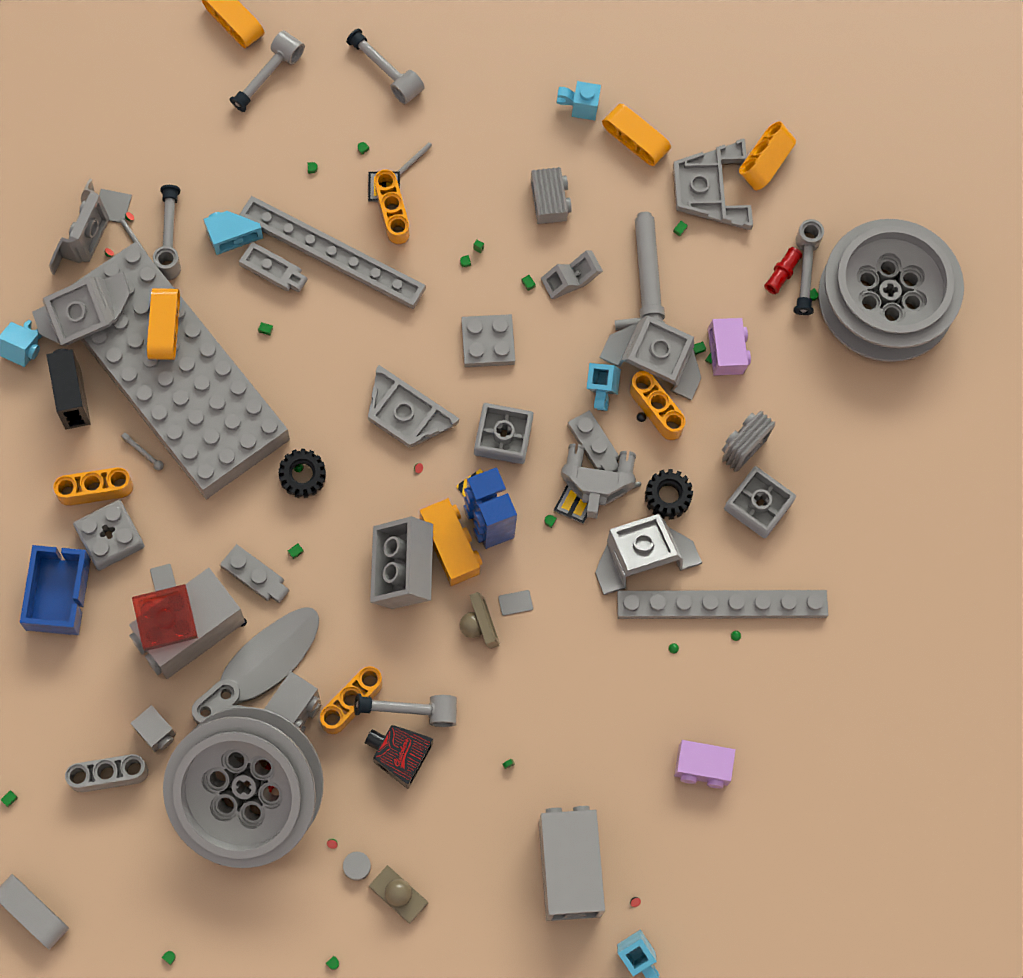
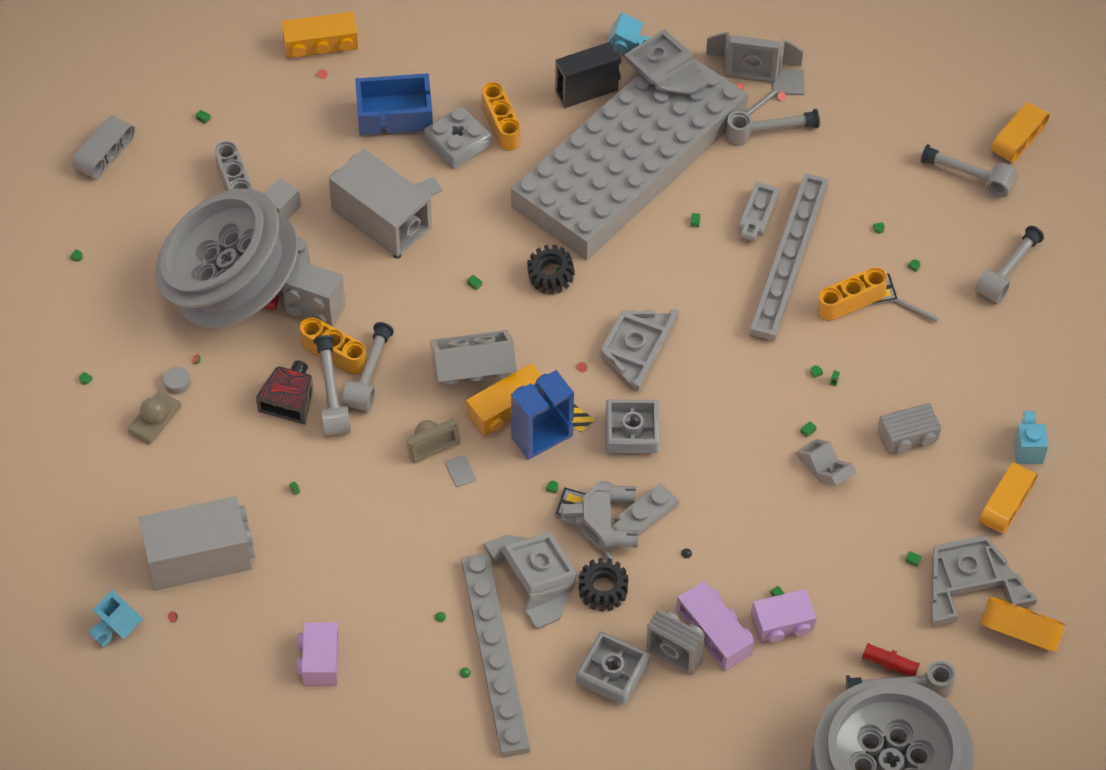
camera: 85 degrees right, 15 degrees down
(158, 465) = (556, 134): light grey hinge -> none
(163, 324) = (664, 121): light orange beam -> none
(164, 617) = (372, 168): clear red plate -> none
(231, 231) = (784, 169): medium azure slope -> none
(254, 574) = (444, 253): light grey hinge -> none
(262, 662) = (363, 276): light grey plant -> none
(414, 683) = (361, 394): none -> light grey piece
(488, 340) = (733, 403): light grey plate -> none
(603, 380) = (710, 502): medium azure brick -> none
(647, 272) = (805, 540): light grey cylinder -> none
(658, 351) = (752, 550): light grey piece -> none
(658, 417) = (701, 548): light orange beam -> none
(727, 405) = (722, 632): none -> lavender brick

